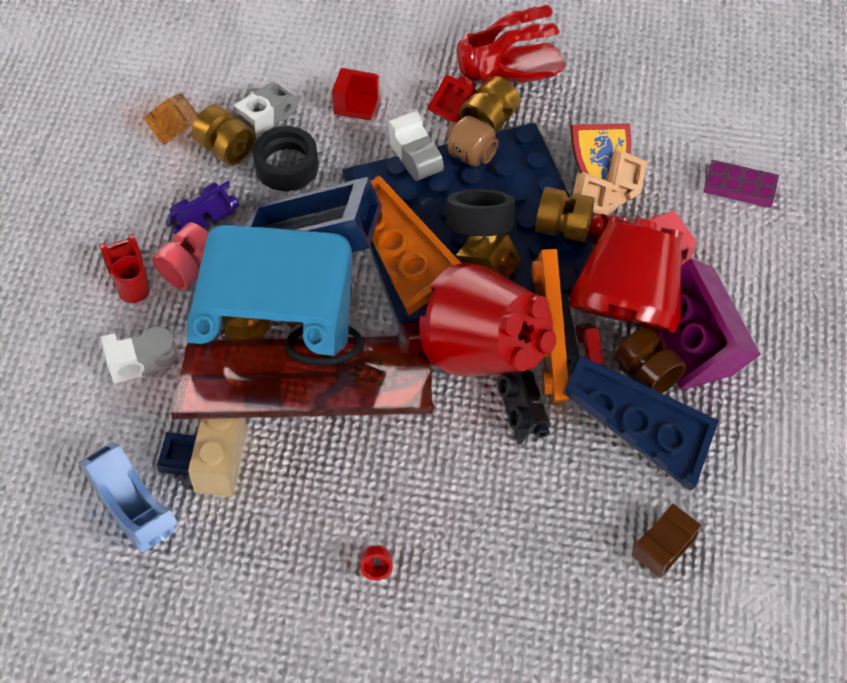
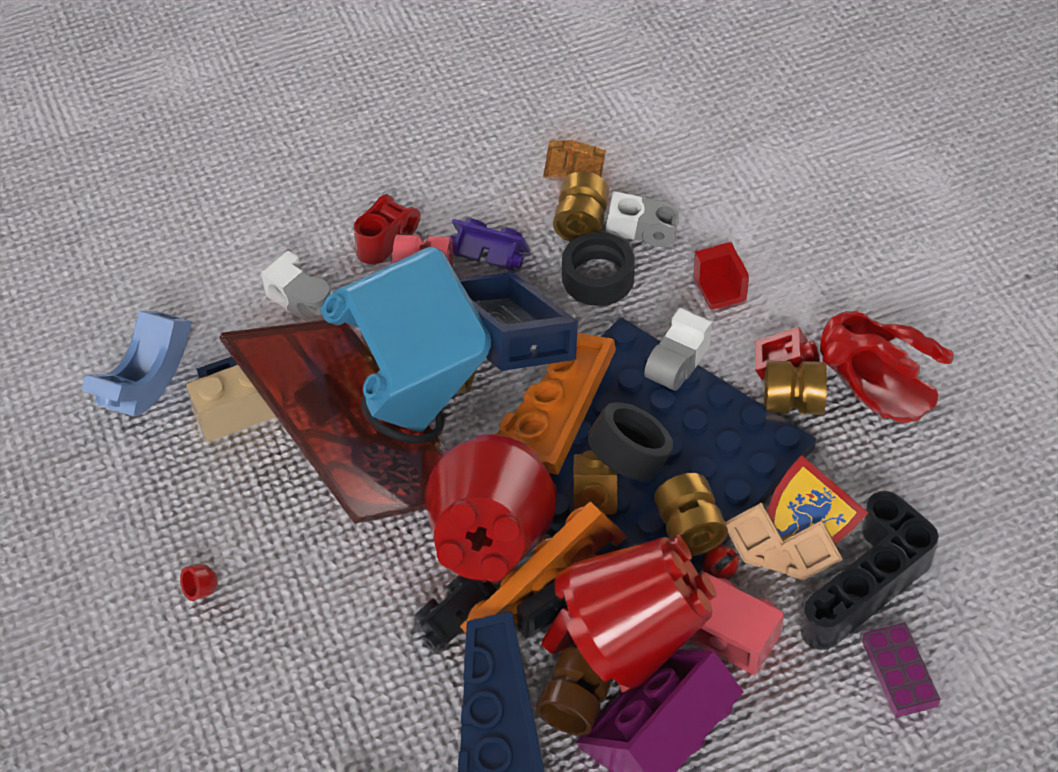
camera: 60 degrees right, 5 degrees down
(471, 141) = (725, 391): medium nougat head -> none
(661, 129) = (890, 552): none -> black beam

